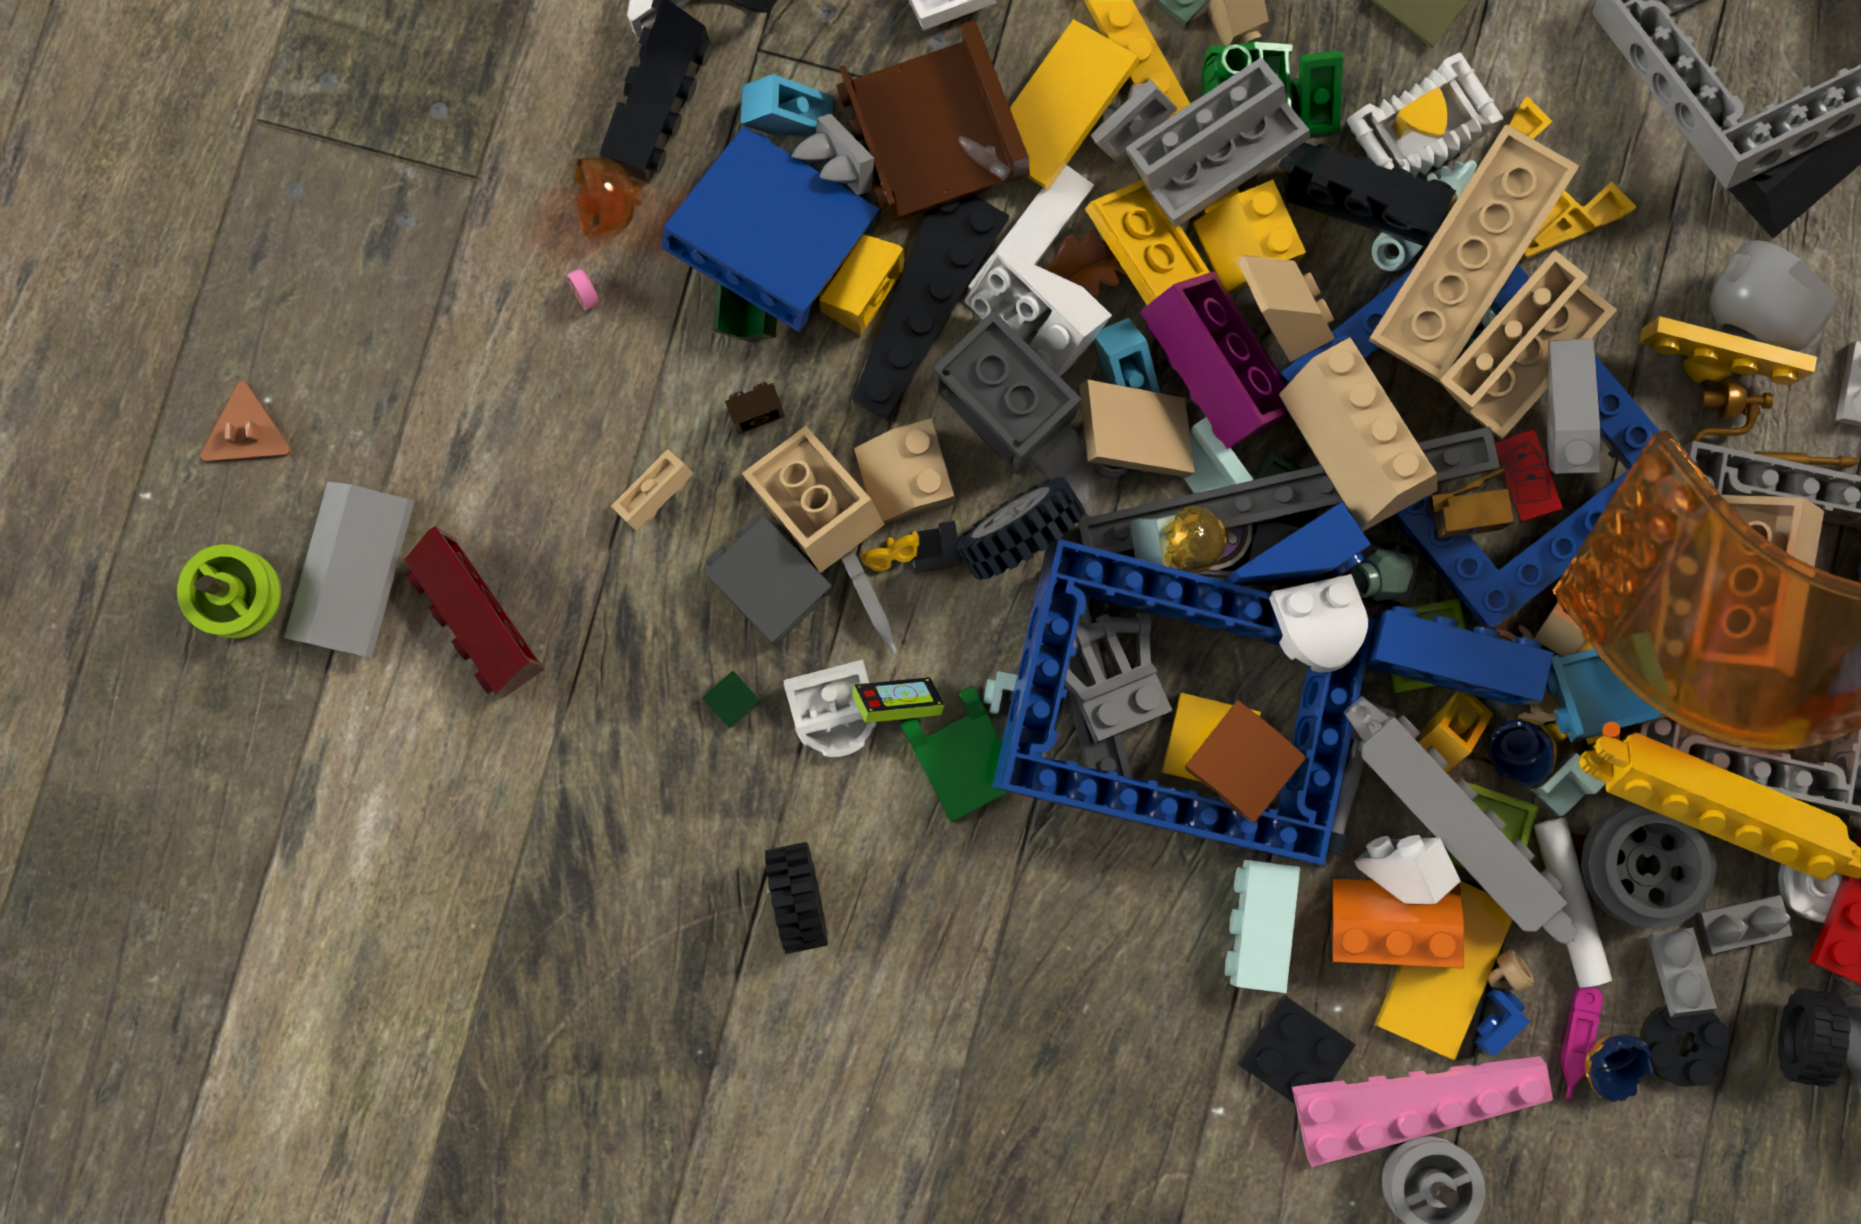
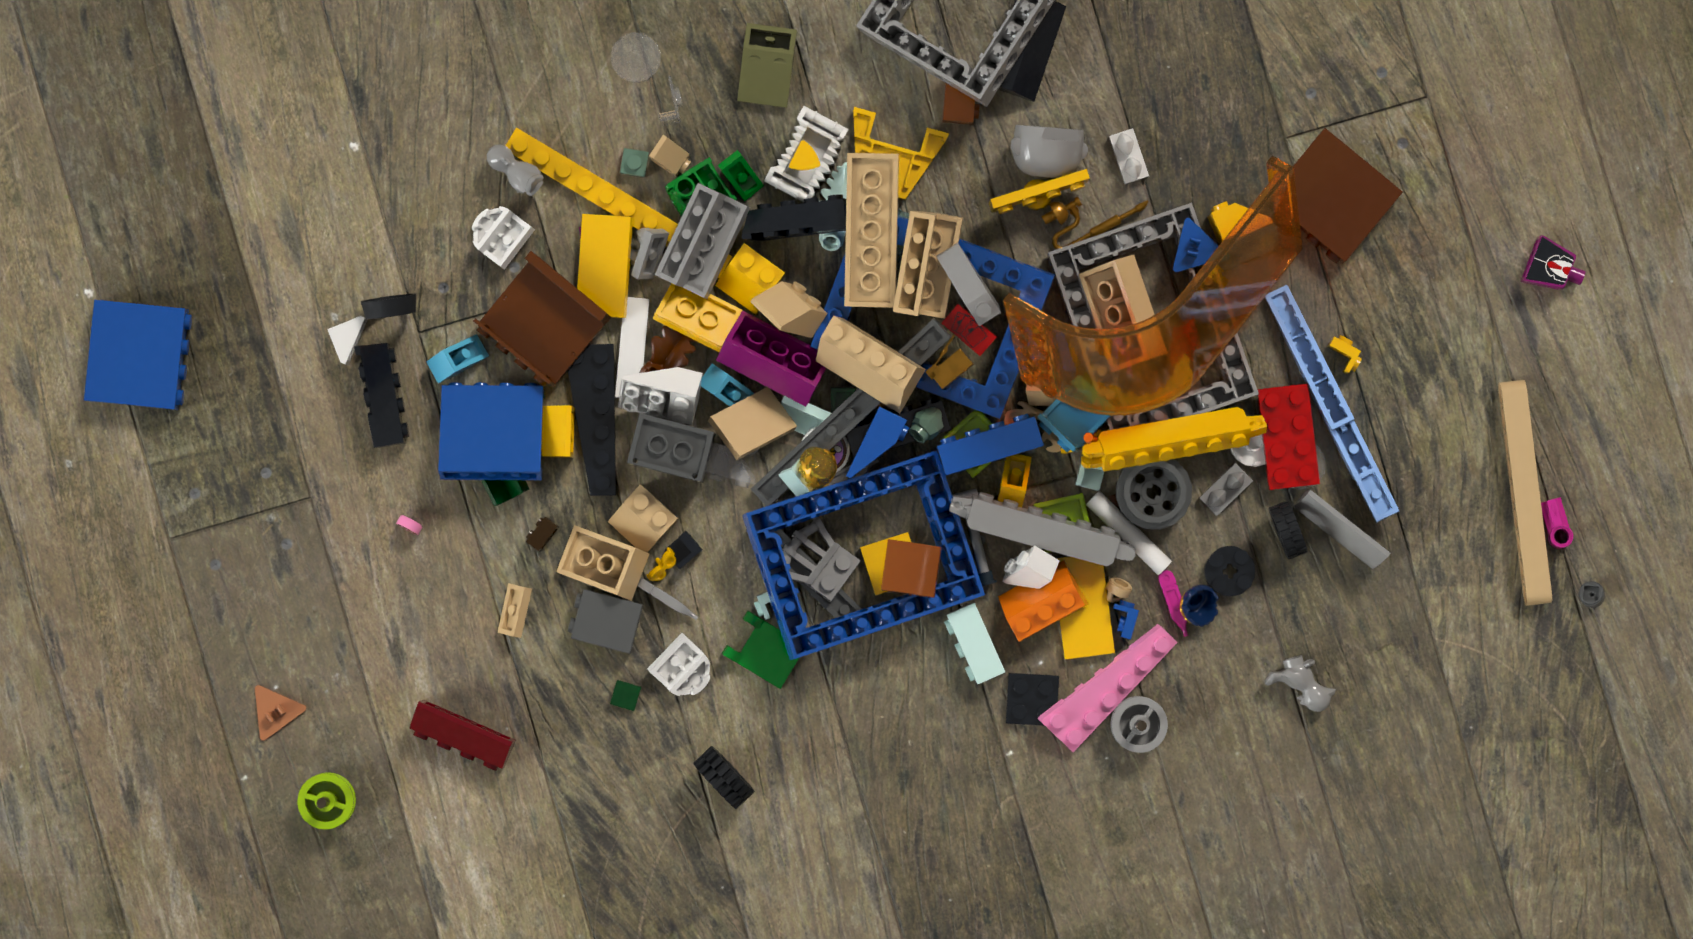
camera: 25 degrees left, 5 degrees up
(349, 569) = (381, 750): light grey slope -> none
(605, 197) = (390, 469): clear orange cylinder -> none
(844, 155) = (509, 370): light grey tile -> none
(897, 700) = (713, 643): tile -> none
(985, 157) = (582, 323): clear helmet -> none
(1020, 528) = (722, 515): black wheel -> none
(1321, 622) = (908, 471): white slope -> none
(1523, 751) = (1056, 469): dark blue hair -> none
(1673, 177) = (959, 107): none -> dark orange slope
(1682, 972) = (1205, 535): light grey tile -> none

